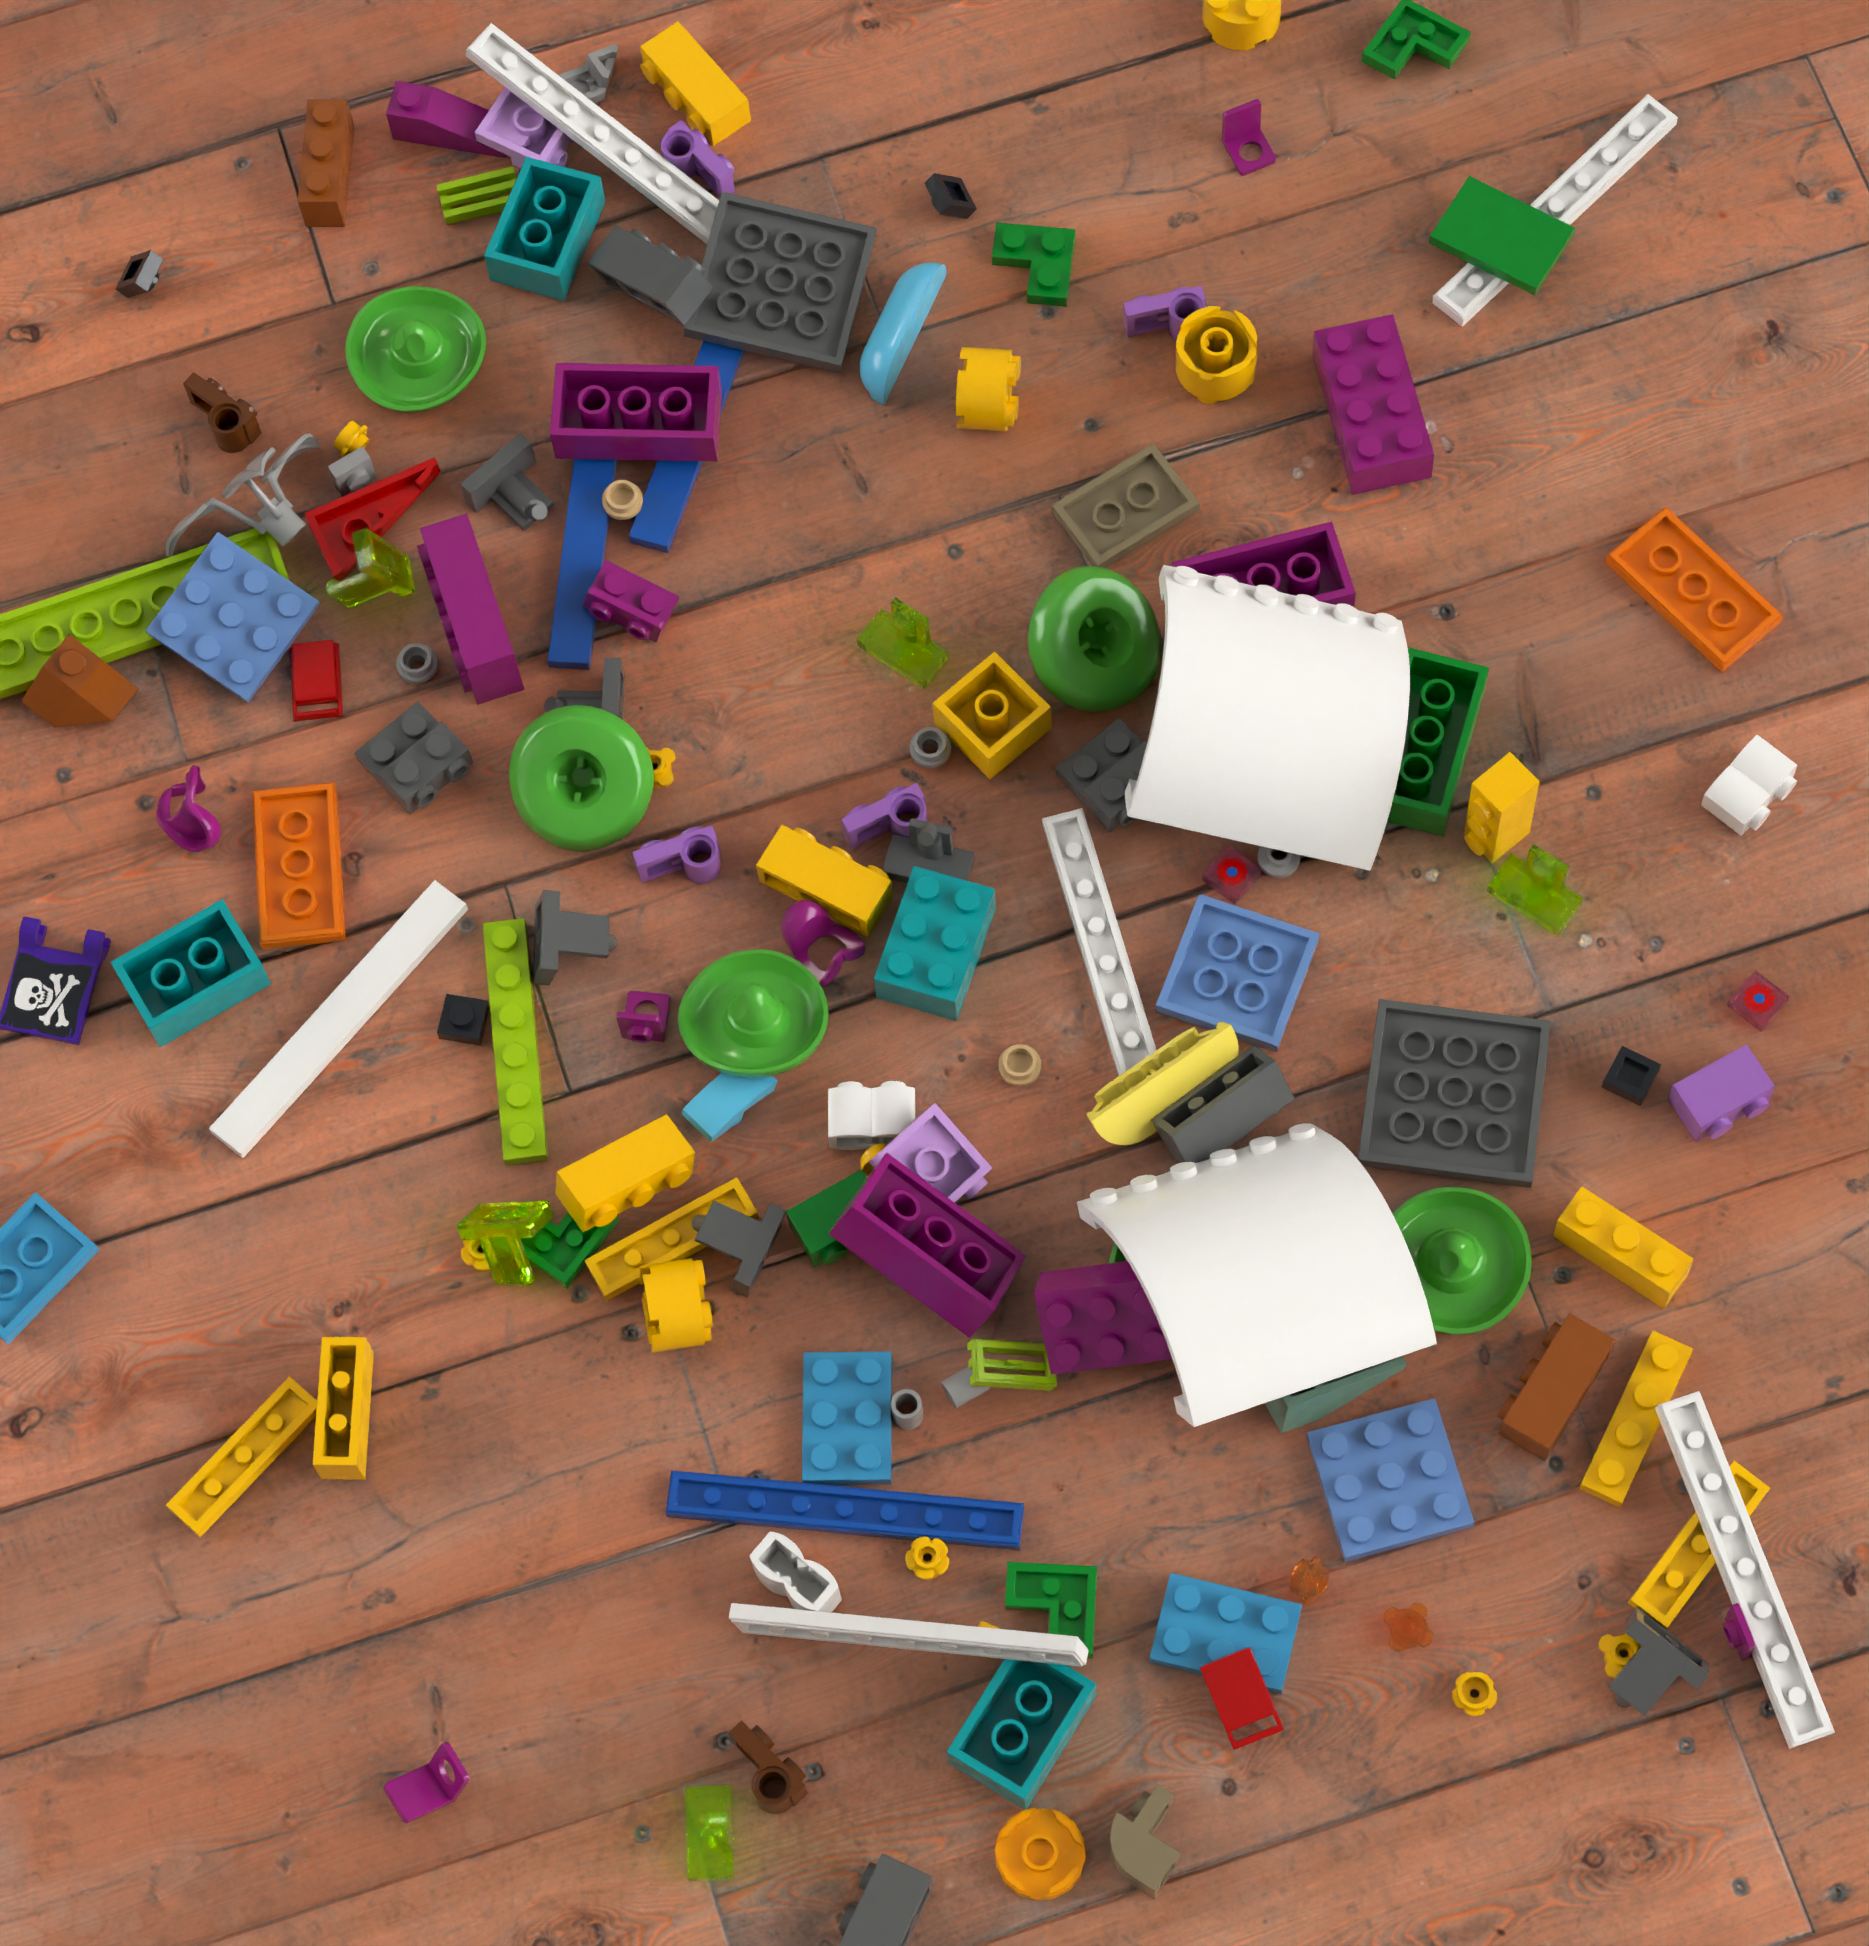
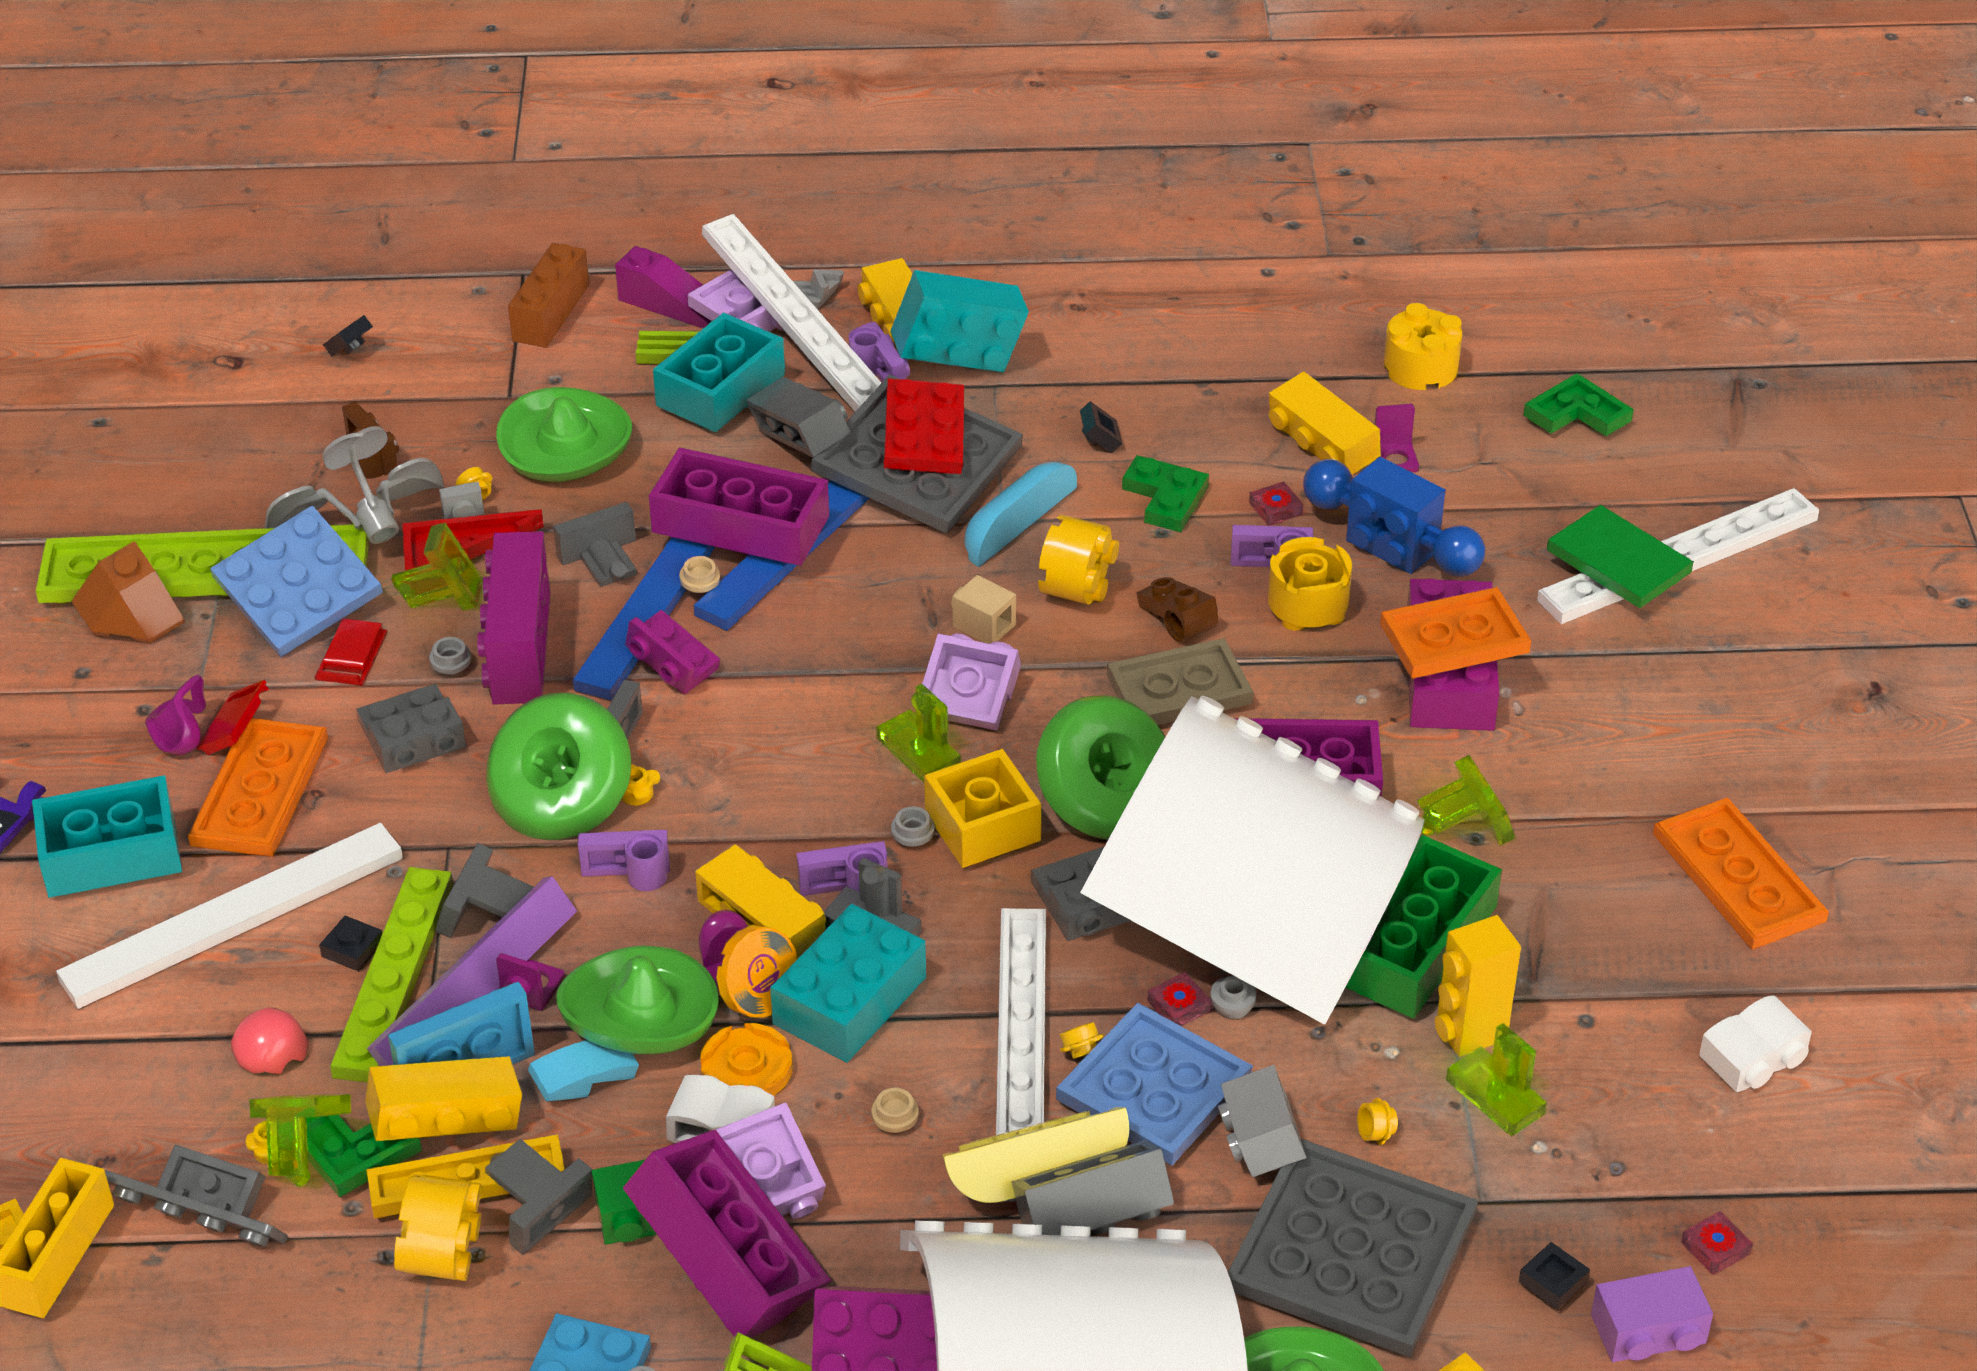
camera: 10 degrees right, 25 degrees down
(241, 797) = (232, 718): none -> red piece
(436, 1149) = (268, 1041): none -> coral hair
(450, 1319) = (207, 1188): none -> dark grey bracket
(594, 1033) = (476, 972): none -> medium lavender tile
(622, 1108) = (475, 1030): none -> dark azure plate
(771, 106) = (959, 321): none -> teal brick
(780, 253) = (924, 426): none -> red plate
(852, 960) = (751, 966): none -> light orange tile
(870, 1047) = (749, 1057): none -> light orange tile
(911, 468) = (984, 610): none -> tan brick
(928, 562) = (972, 678): none -> lavender plate
(1097, 410) = (1183, 607): none -> reddish brown plate
(1150, 247) = (1276, 503): none -> clear pink tile
(1159, 944) = (1080, 1039): none -> yellow plate
(1171, 136) = (1324, 423): none -> yellow brick
(1276, 249) = (1395, 516): none -> blue brick
(1346, 994) = (1261, 1122): none -> light grey brick
(1379, 400) = (1455, 632): none -> orange plate
(1428, 585) = (1463, 800): none -> clear neon green piece
(1441, 959) = (1377, 1121): none -> yellow plate

